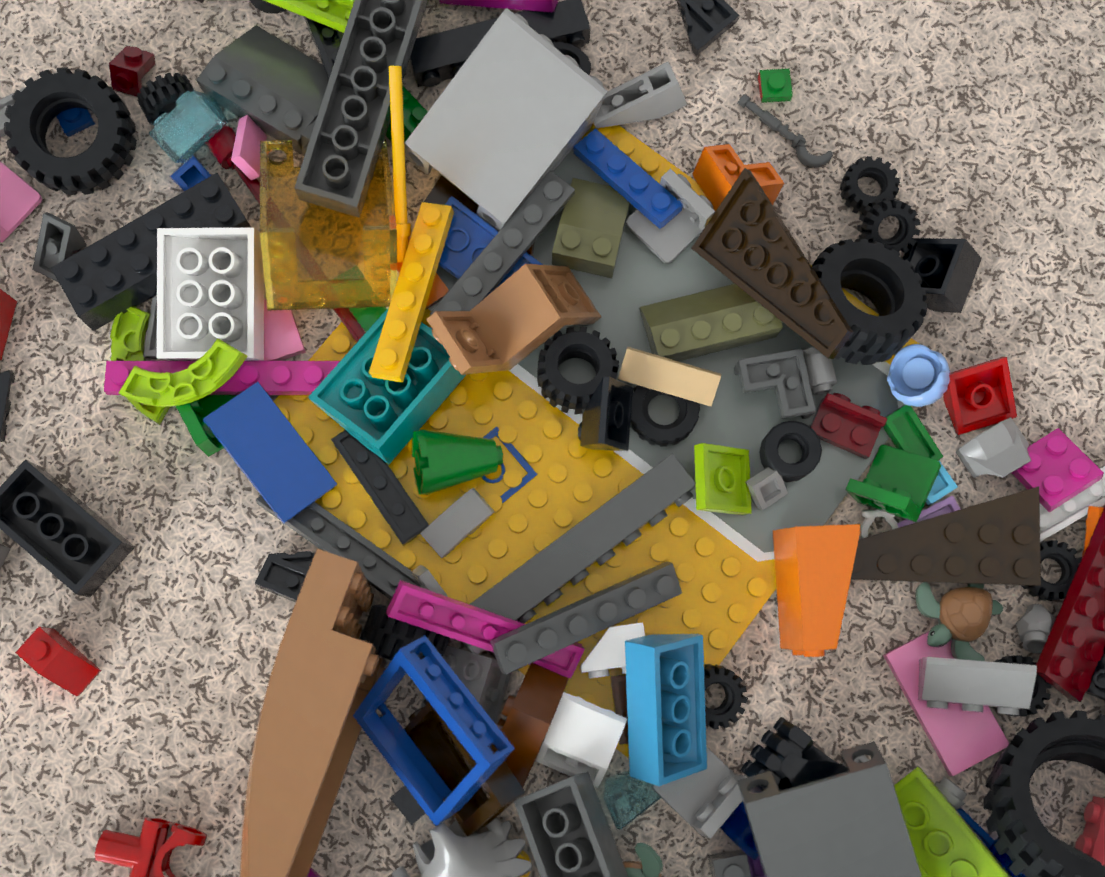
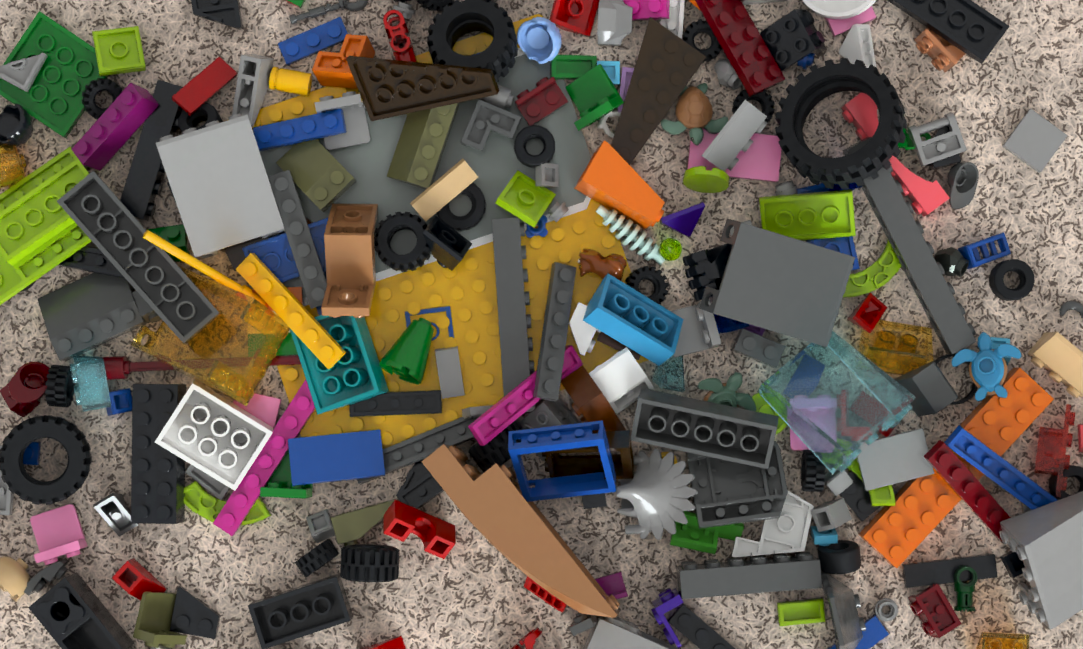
camera: 55 degrees left, 10 degrees up
(134, 506) = (317, 558): none -> black tyre
(146, 61) = (29, 382): none -> dark red cap
(162, 573) = (369, 563): none -> black tyre
(180, 490) = (320, 526): none -> light grey slope
(186, 385) = (264, 482): lime tile -> none
(206, 528) = (356, 523): none -> olive slope
(247, 147) = (126, 354): bright pink tile -> none
(249, 629) = (435, 533): none -> red arch
(605, 49) = (204, 86): none -> red piece
(674, 137) = (290, 81): none -> yellow piece
(696, 523) = (540, 231): none -> blue plate
(703, 611) = (594, 262): none -> dark orange animal
(726, 129) = (313, 41): none -> blue plate
(733, 527) = (557, 211): none -> light grey plate
(764, 635) = (630, 234): none -> light aqua piece
(786, 698) = (675, 247): none -> clear neon green plate
(805, 217) = (399, 35): none -> red connector
(826, 689) = (684, 220): none -> dark purple slope
(839, 209) = (405, 9): none -> light grey plate
(893, 683) = (705, 180): none -> lime tile

